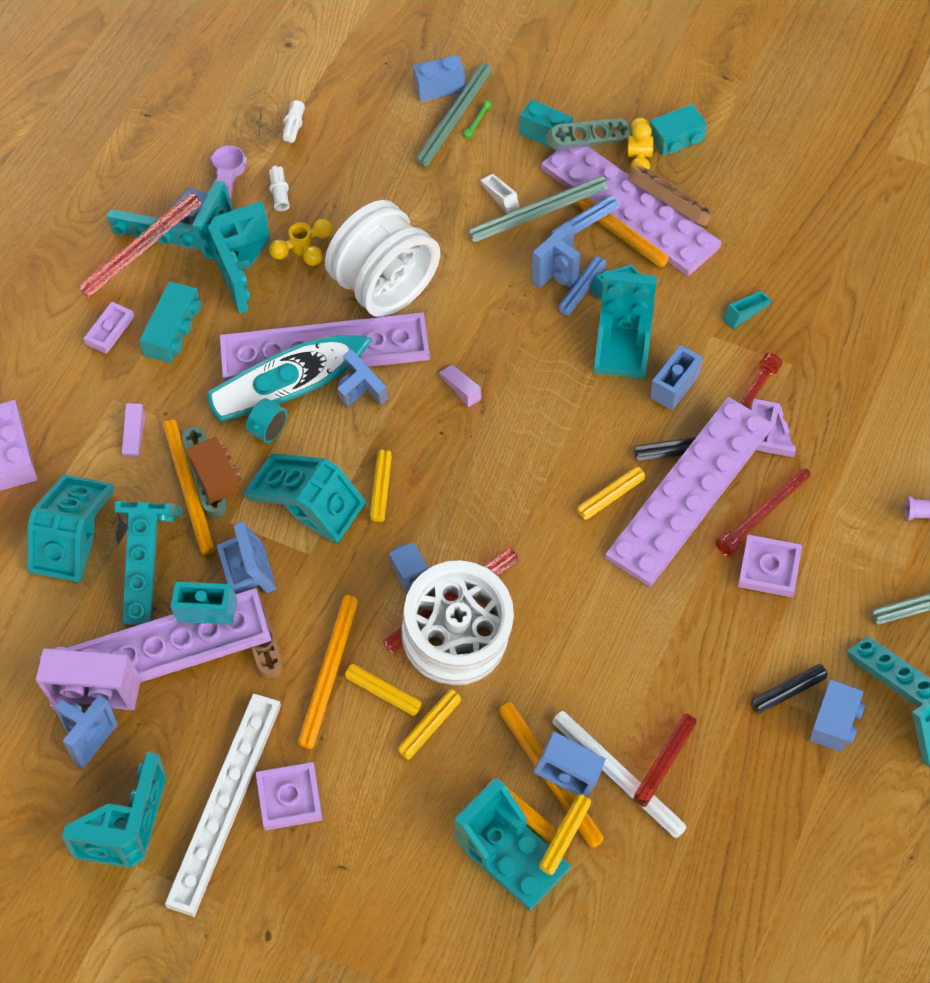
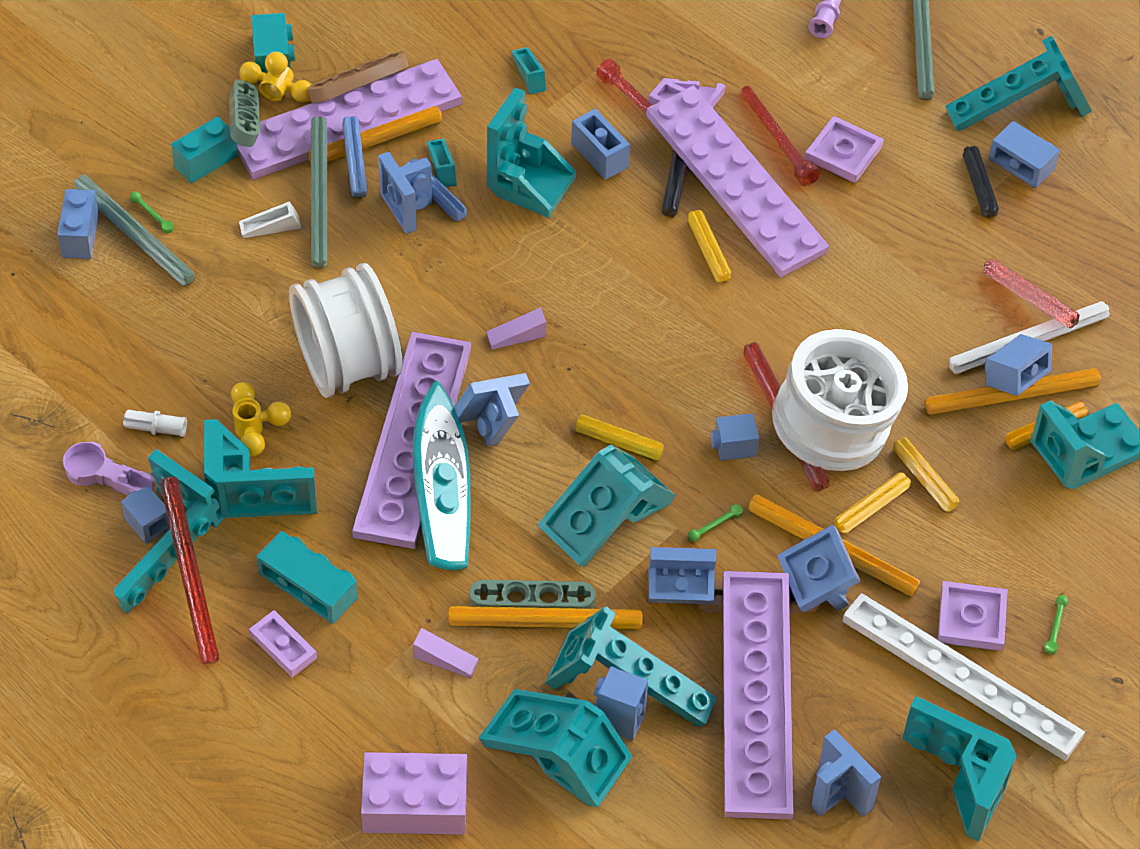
camera: 75 degrees left, 5 degrees down
(86, 674) = (793, 746): lavender brick -> none
(108, 552) = (622, 700): none -> medium blue brick
(204, 603) = (738, 612): teal brick -> none
(213, 469) = (548, 575): dark orange brick -> none
(266, 420) = (497, 512): teal piece -> none
(283, 870) = (1051, 645): none -> bright green hinge
(284, 661) = (819, 570): none -> medium blue bracket
(293, 121) = (61, 382): white axle -> none
(340, 590) = (735, 512): none -> bright green hinge
(565, 834) = (1090, 390): yellow axle -> none

